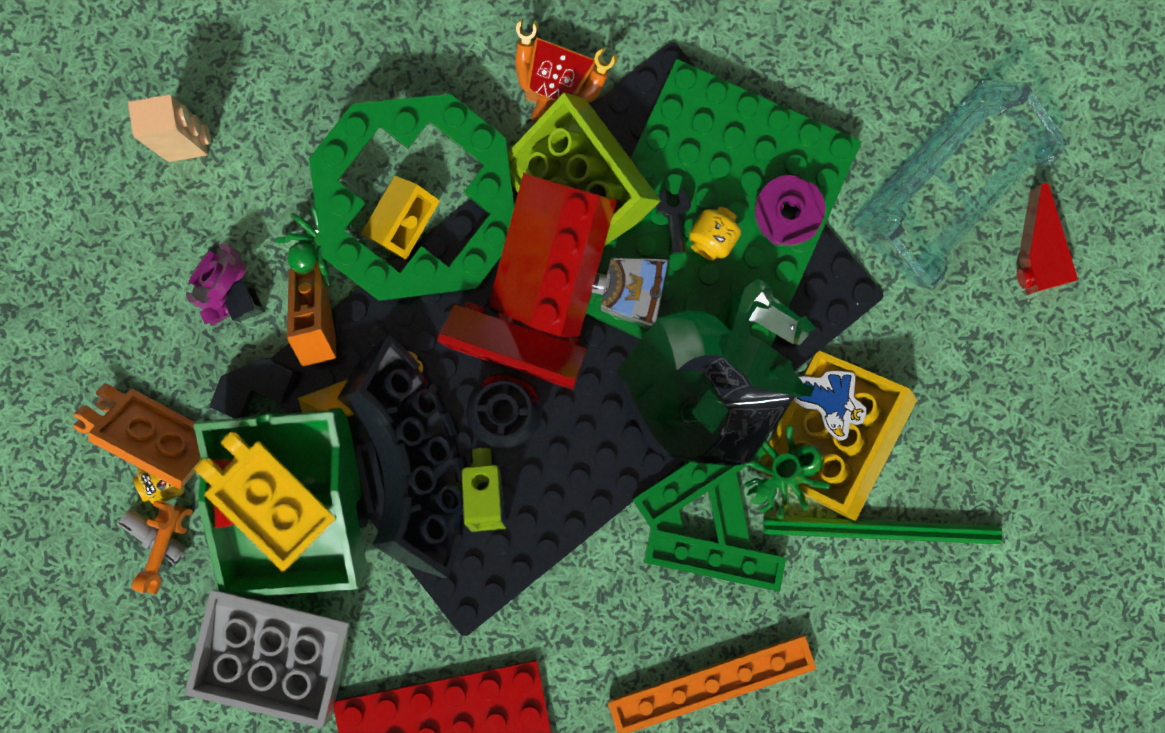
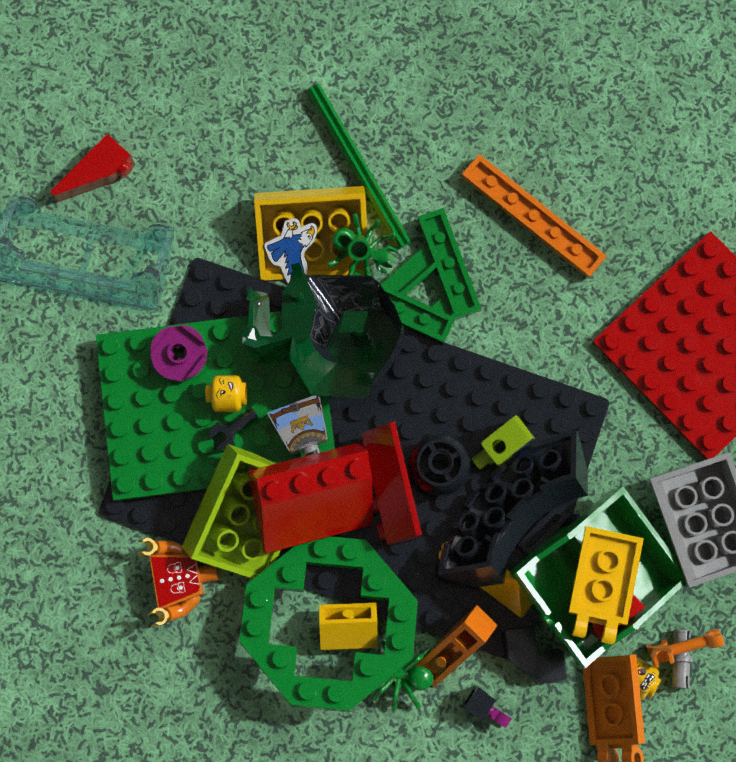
camera: 120 degrees left, 5 degrees down
(215, 277) = (483, 723): magenta plate -> none

